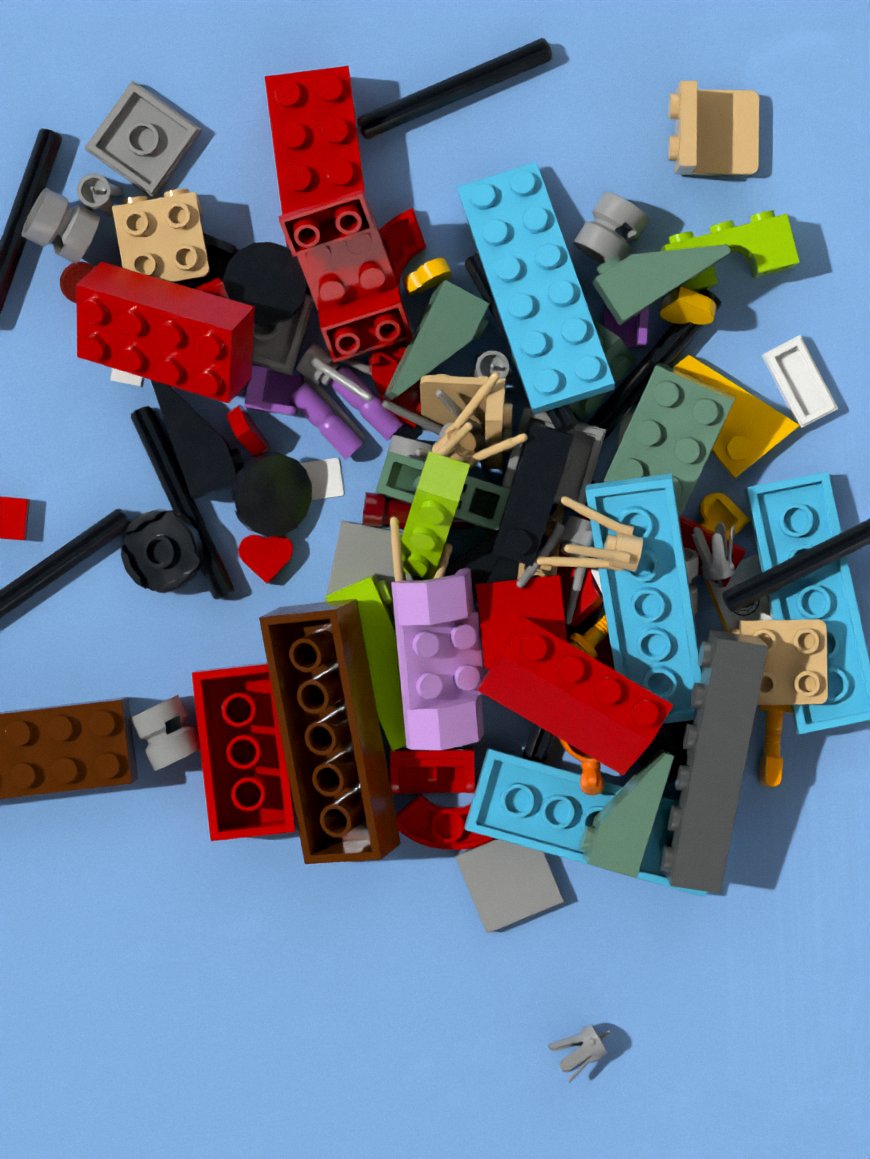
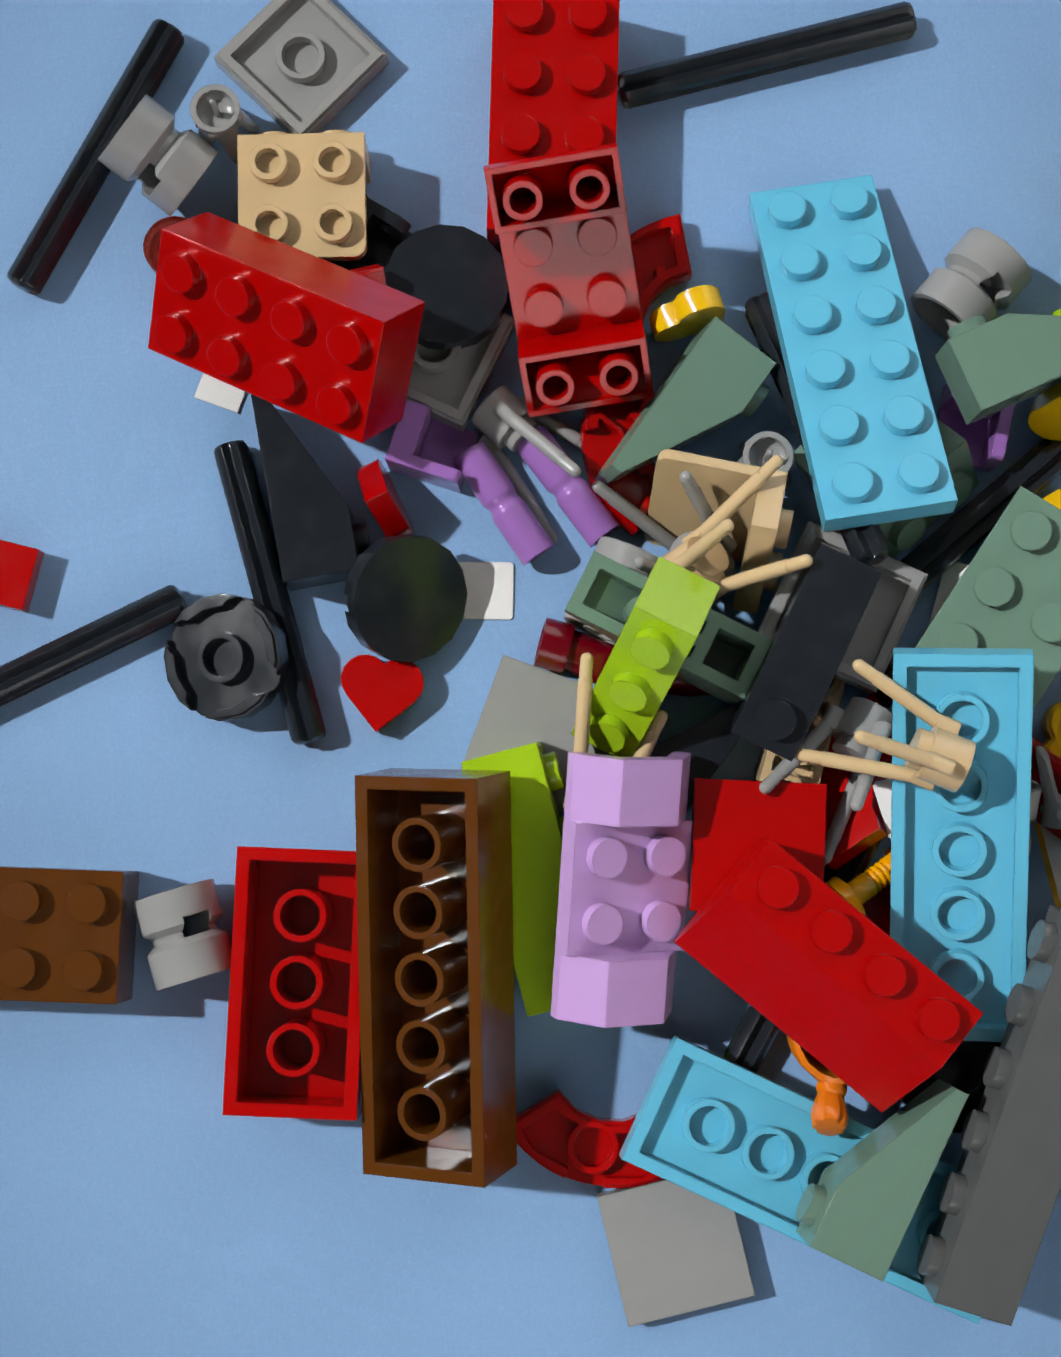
camera: 15 degrees right, 5 degrees down
(432, 771) = (583, 1057): red hinge -> none

